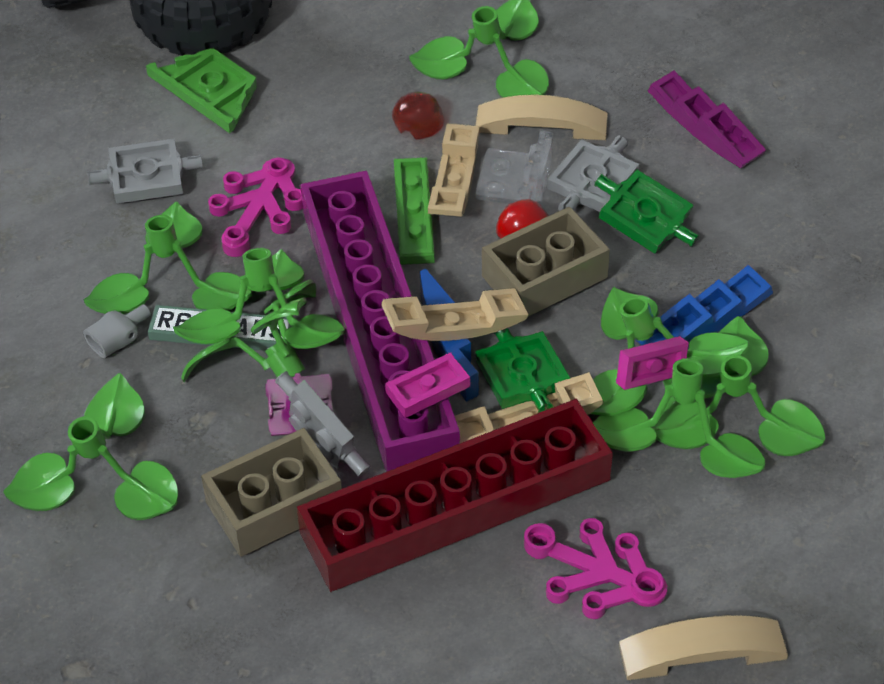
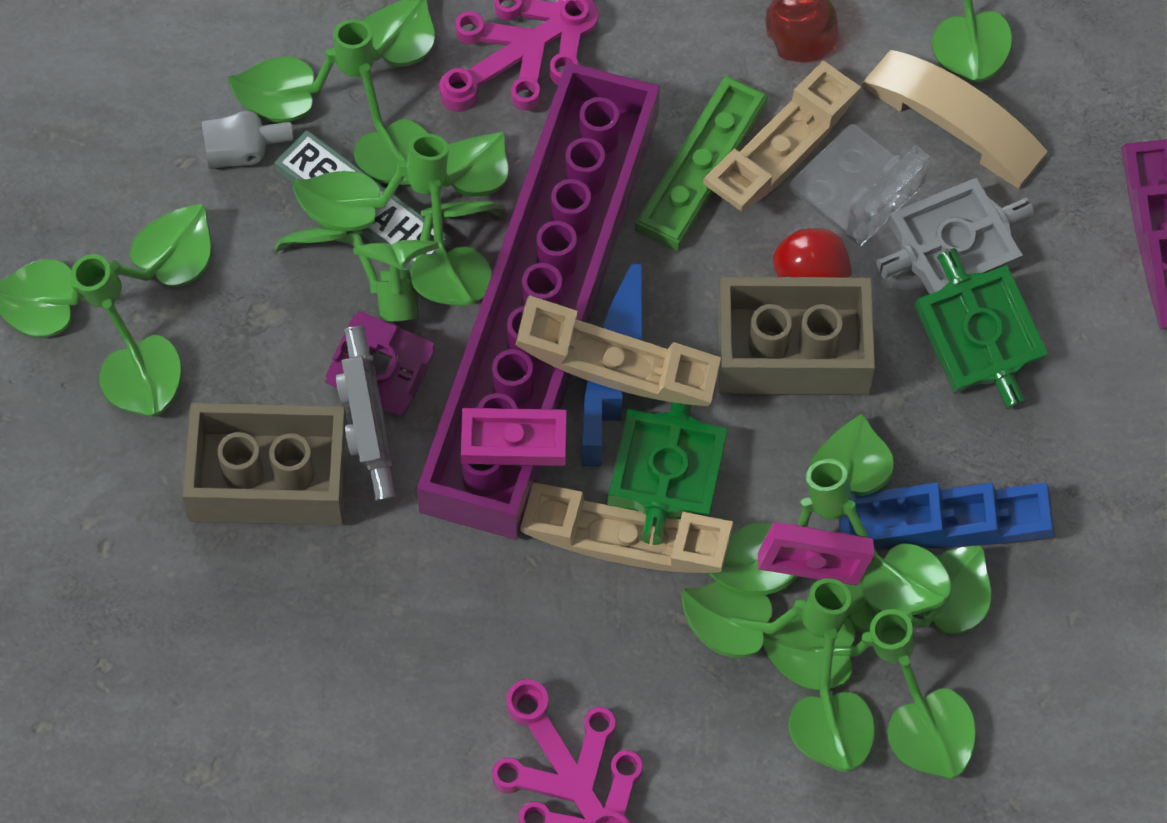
camera: 30 degrees right, 15 degrees up
(453, 494) = (467, 588): dark red brick -> none

